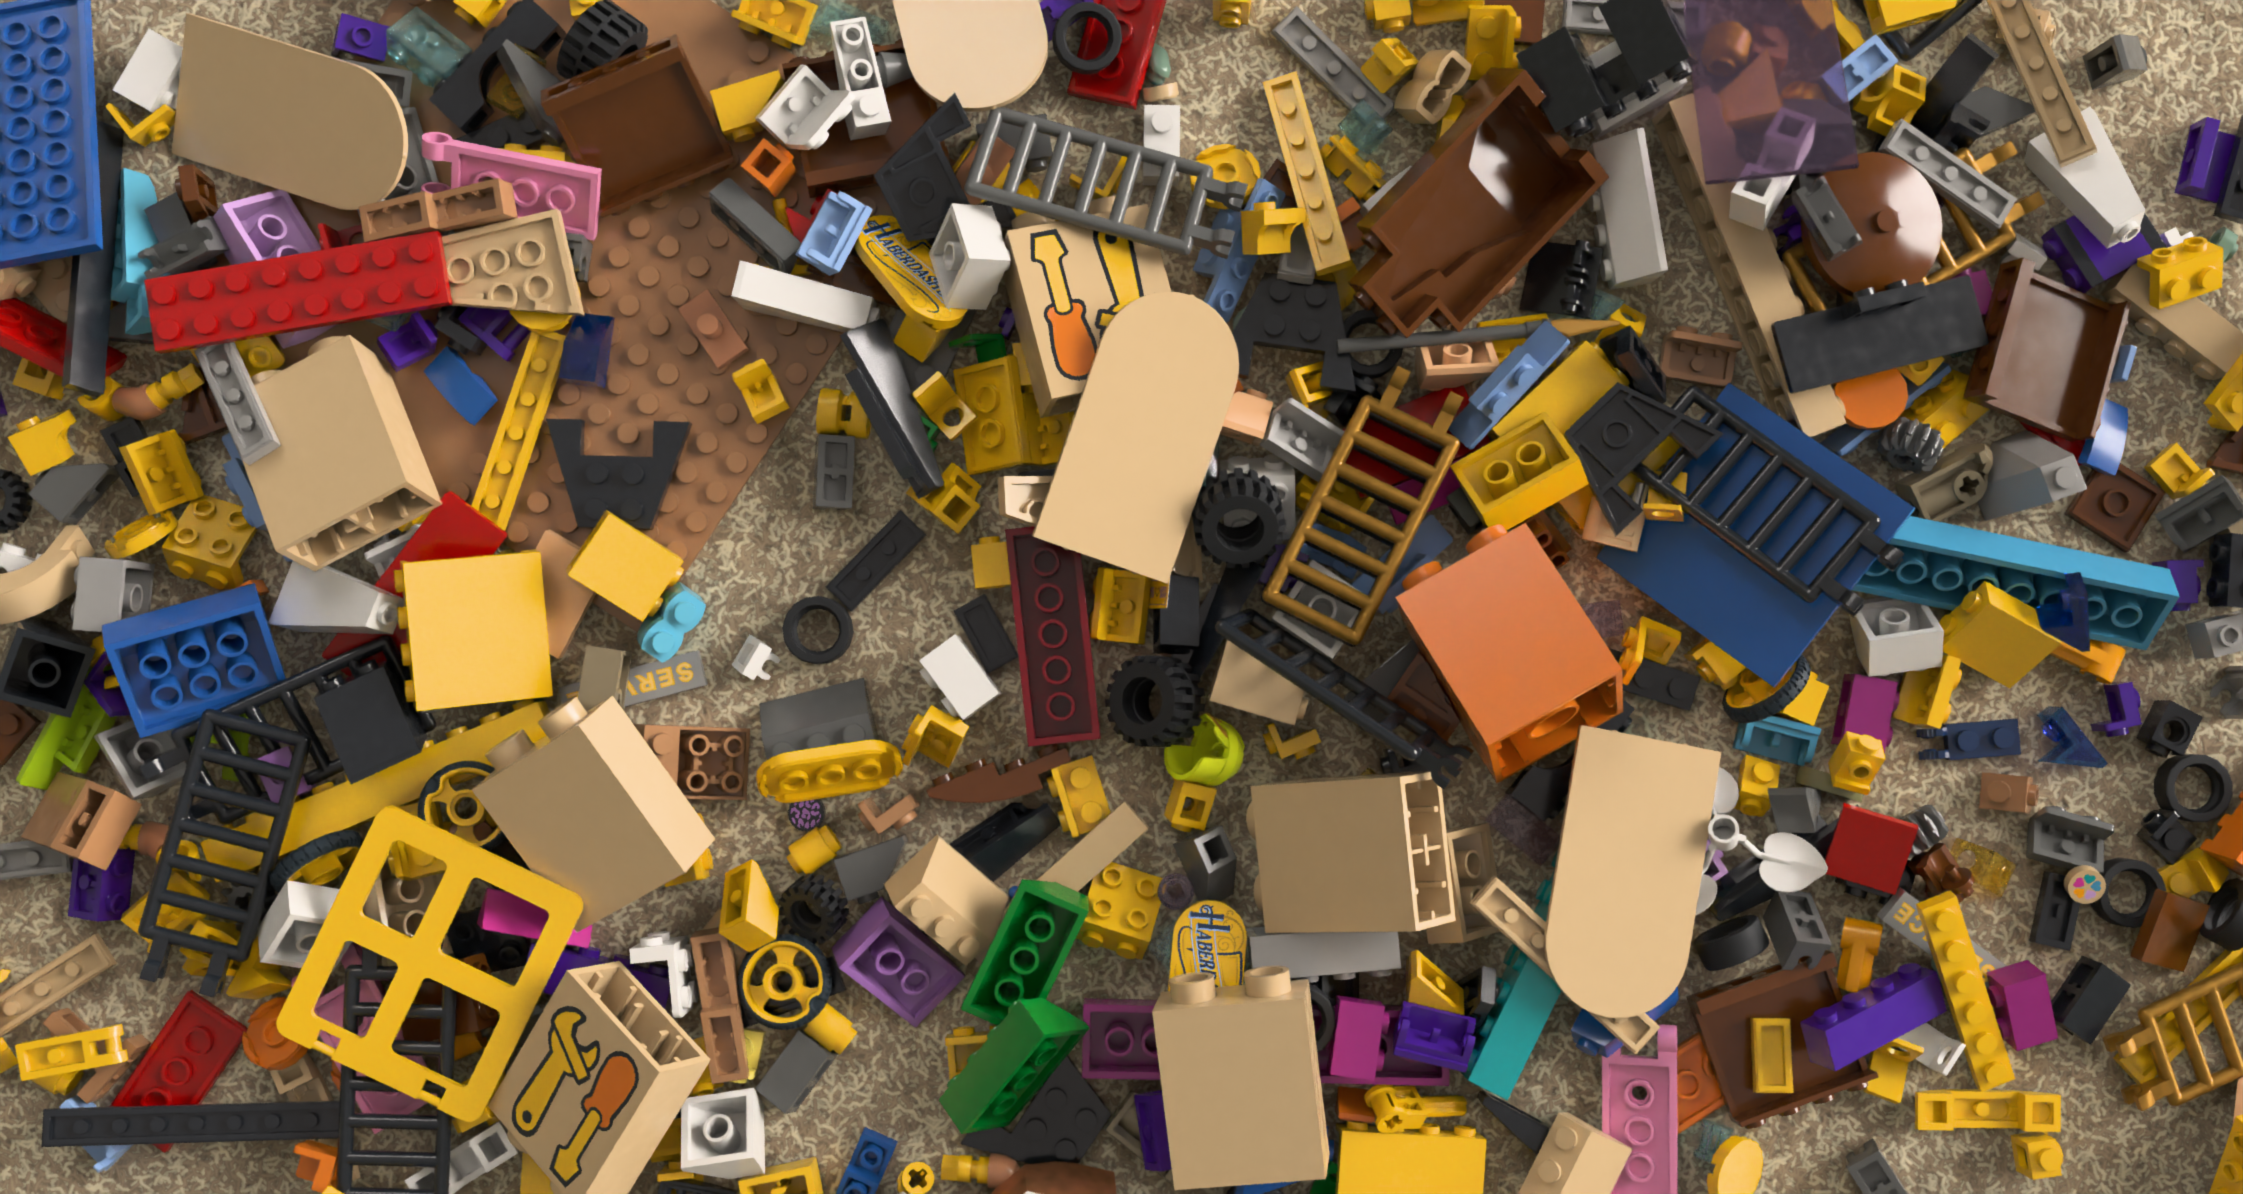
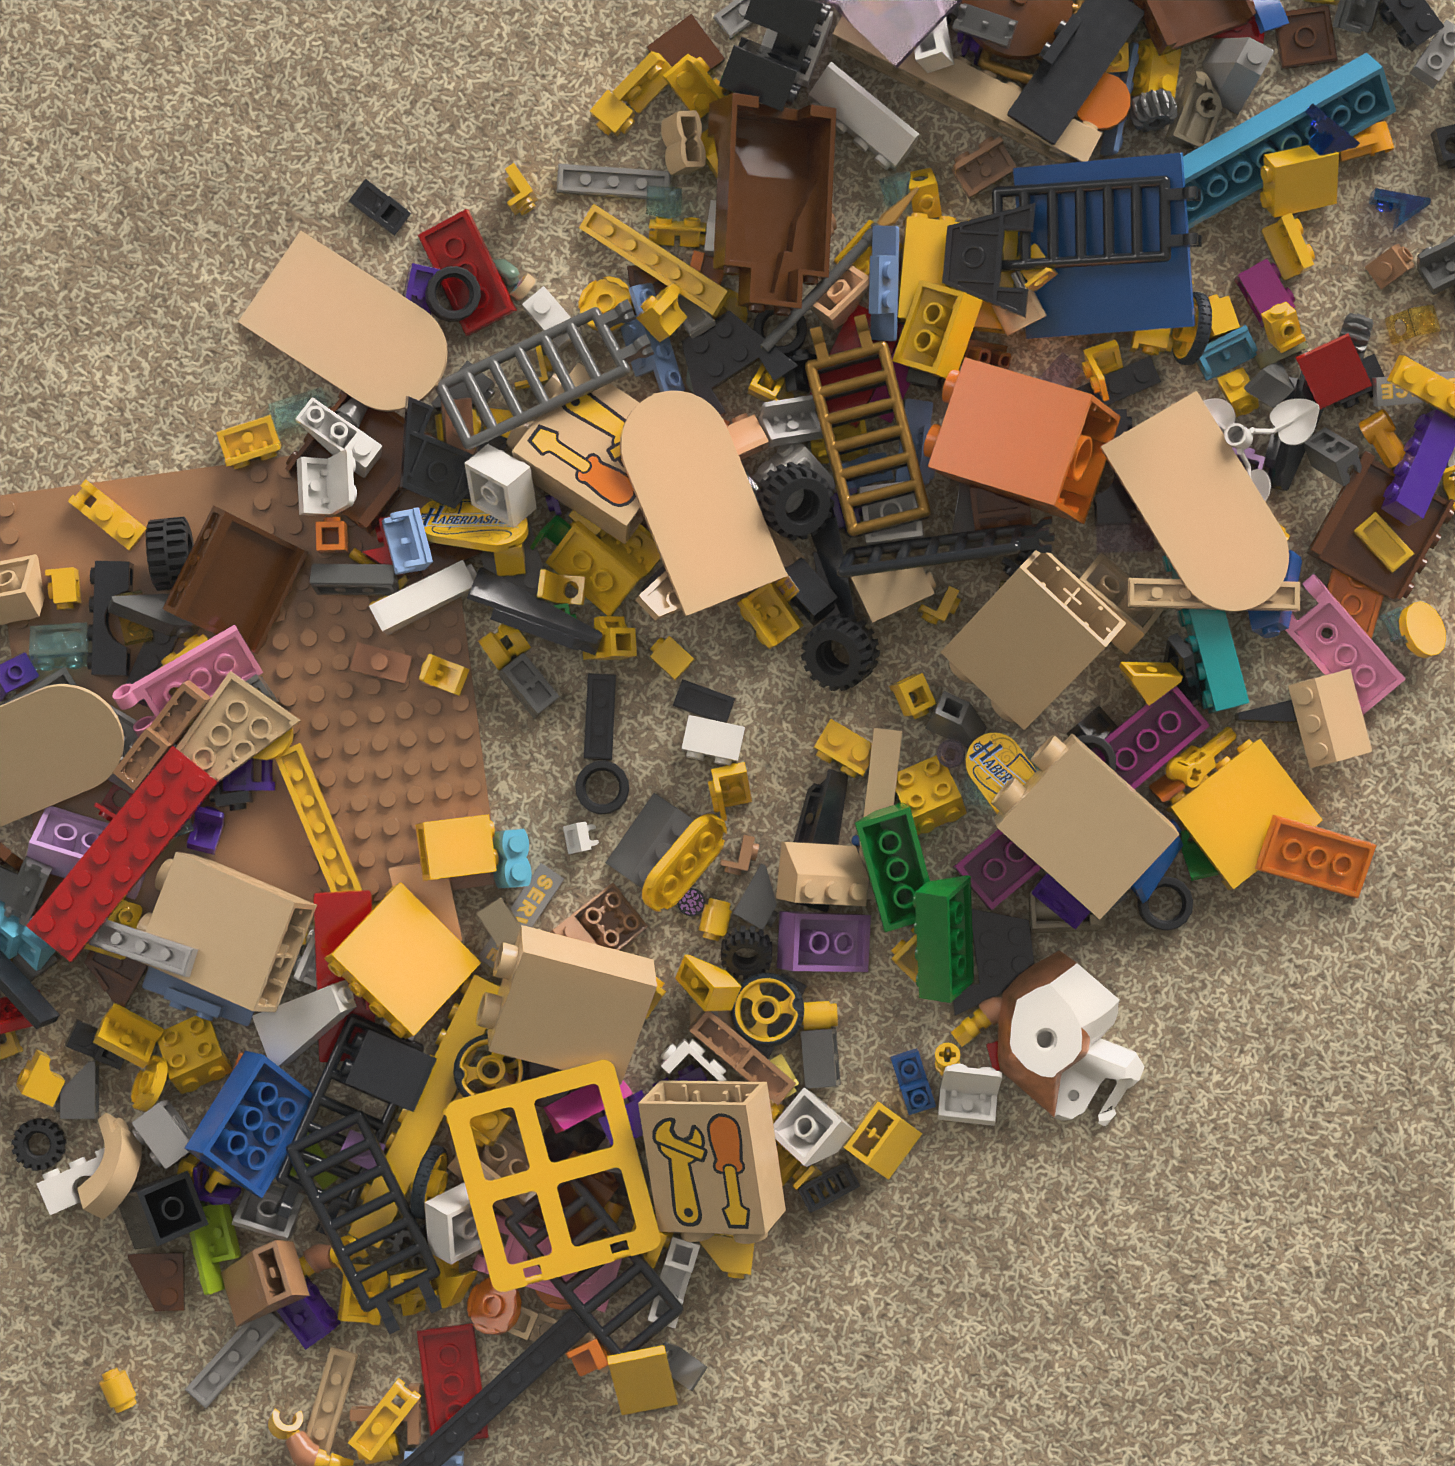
camera: 40 degrees left, 0 degrees up
(143, 401) = (80, 1003): yellow piece -> none
(460, 386) = (260, 829): blue slope -> none
(587, 351) = (318, 741): clear blue slope -> none
(621, 484) = (408, 803): black wing -> none
(742, 102) = (282, 512): yellow slope -> none
(986, 784) = (782, 790): reddish brown slope -> none
(1052, 640) = (747, 669): dark red brick -> none
(1212, 755) = (901, 655): neon yellow helmet -> none
(1325, 953) = (1071, 707): light grey slope -> none
(1357, 1037) = (1131, 743): magenta brick -> none
(1388, 64) = (645, 150): yellow slope -> none
(1434, 1036) = (1174, 703): dark purple hinge -> none
(1562, 279) = (861, 190): black hinge -> none
(1633, 359) = (950, 203): black bracket -> none
(1731, 943) = (1303, 497): black tyre -> none
(1896, 637) = (1242, 231): white slope -> none
(1942, 873) = (1388, 347): reddish brown hips -> none
(1973, 740) = (1343, 251): dark blue hinge -> none
(2123, 707) = (1412, 153): dark purple bracket -> none
(2186, 581) = (1384, 52): dark purple brick -> none

